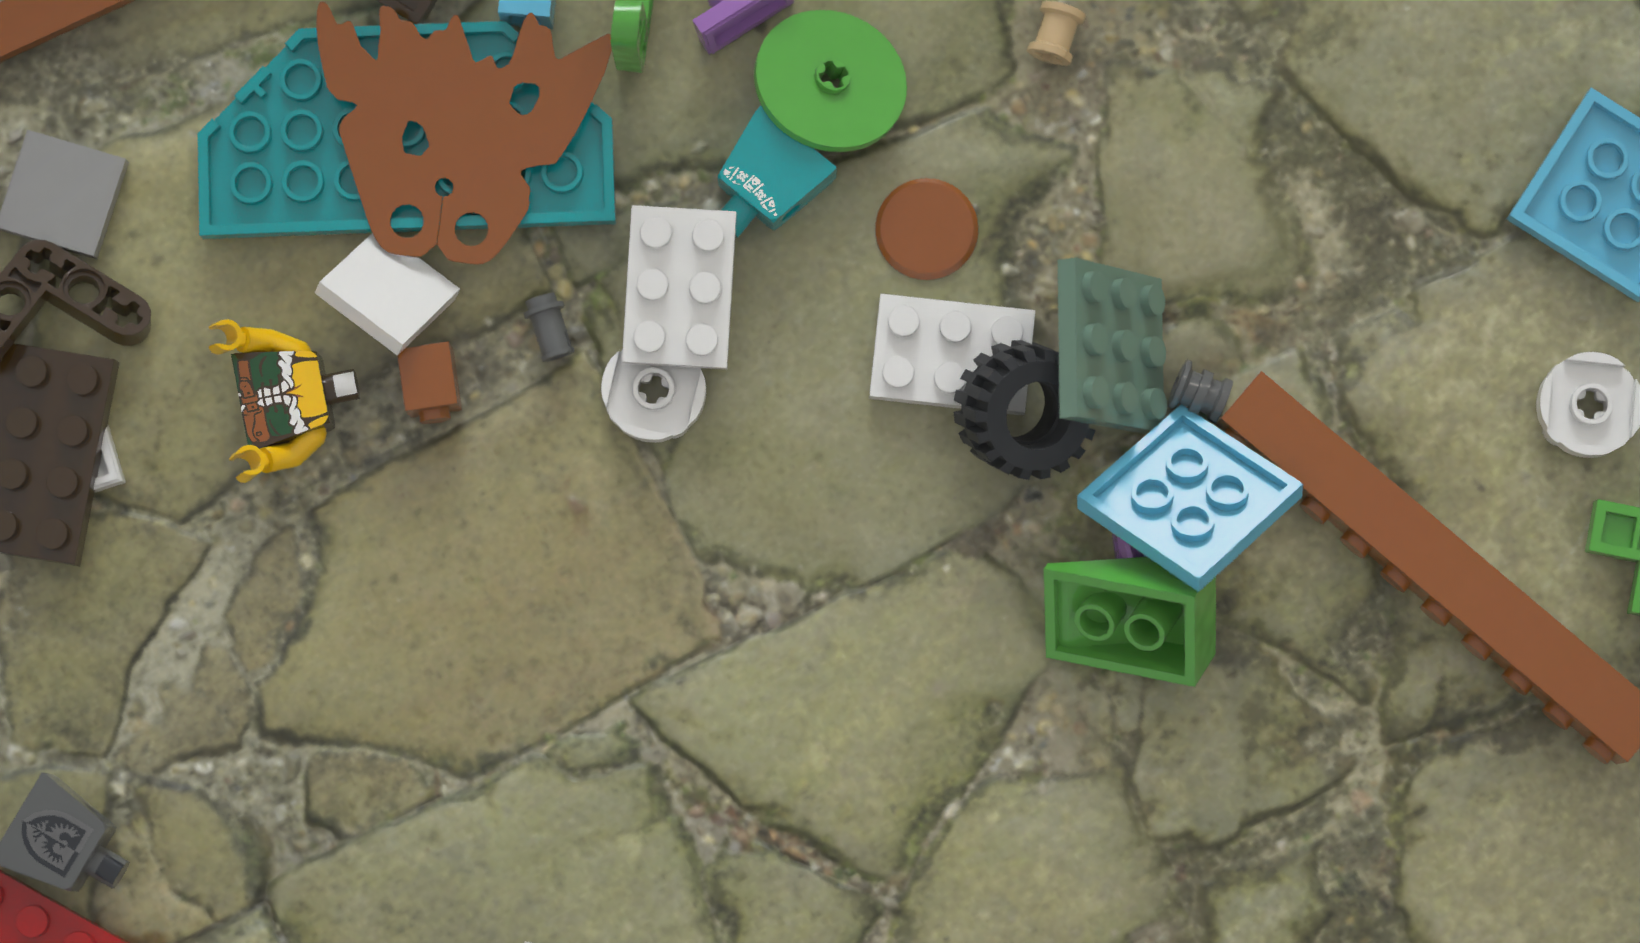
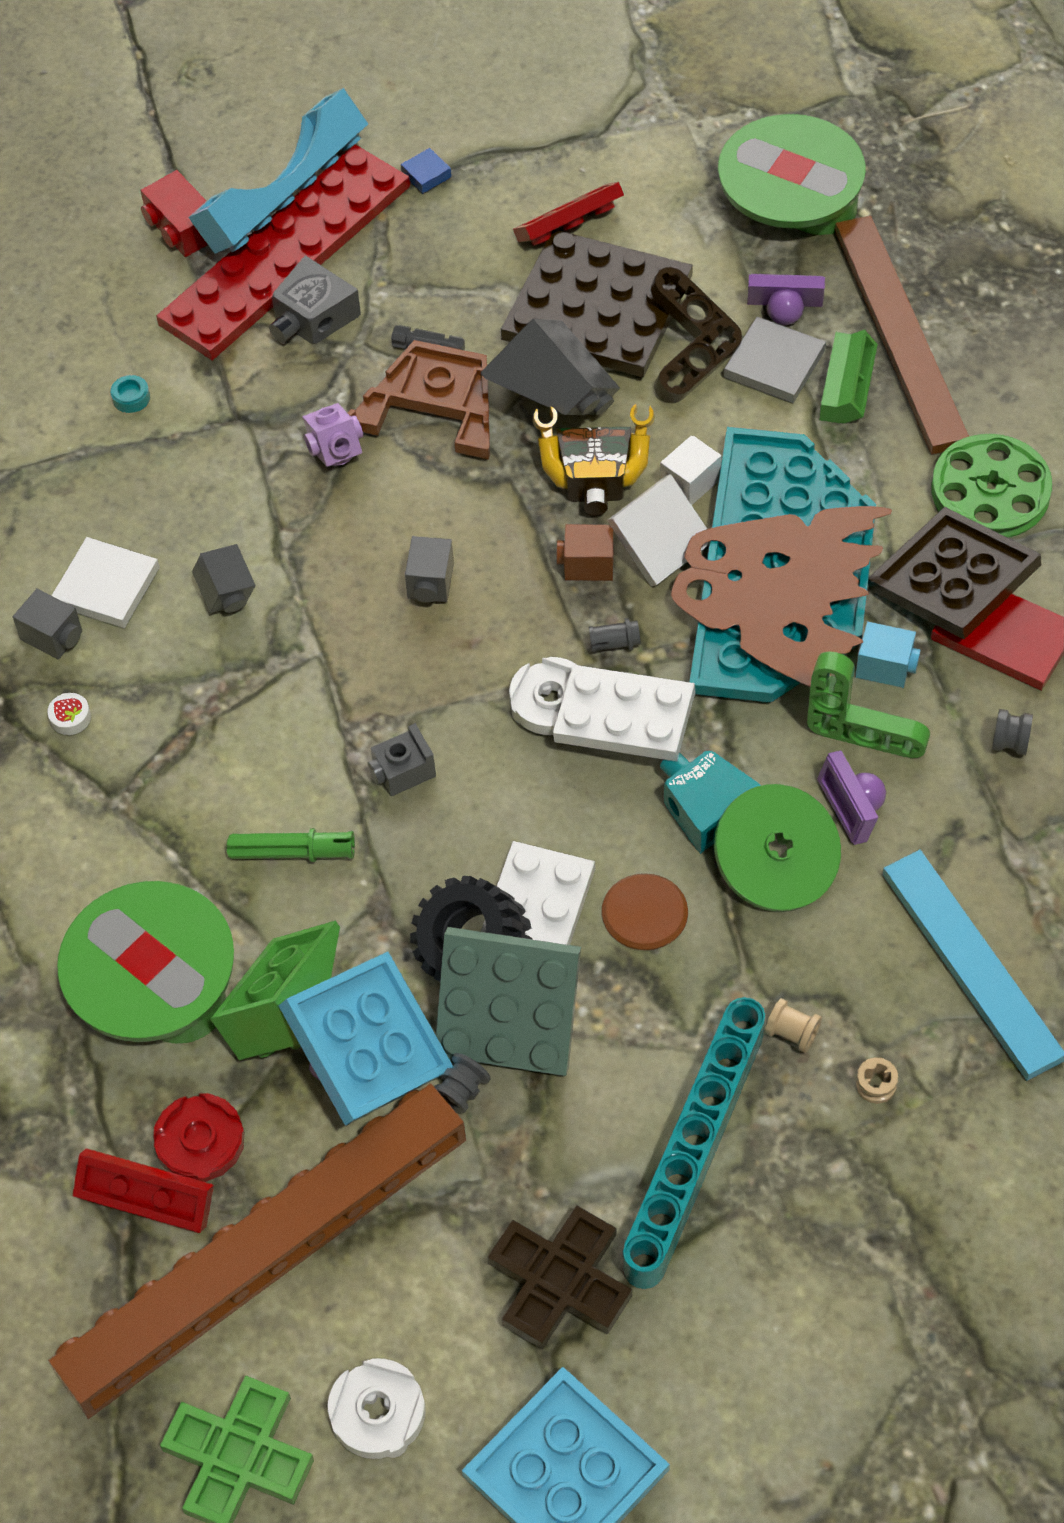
camera: 105 degrees right, 25 degrees down
(84, 93) = (848, 377): none -> bright green piece
(98, 665) = (403, 337): none -> dark grey axle
(161, 470) = (553, 369): none -> dark grey slope
(172, 635) = (438, 383): none -> dark orange wing
(277, 271) = (693, 468): none -> white panel
(294, 752) = (333, 435): none -> lavender brick
(496, 575) = (429, 569): none -> brick
(554, 838) = (223, 579): none -> dark grey brick
(767, 537) = (402, 761): none -> dark grey brick
(922, 662) = (291, 845): none -> bright green axle
(1127, 786) = (147, 963): none -> bright green piece
(1244, 112) = (691, 1159): none -> teal beam
(1314, 679) = (199, 1137): none -> red tile
(1398, 720) = (143, 1190): none -> red plate
(1405, 239) = (559, 1277): none -> dark brown plate

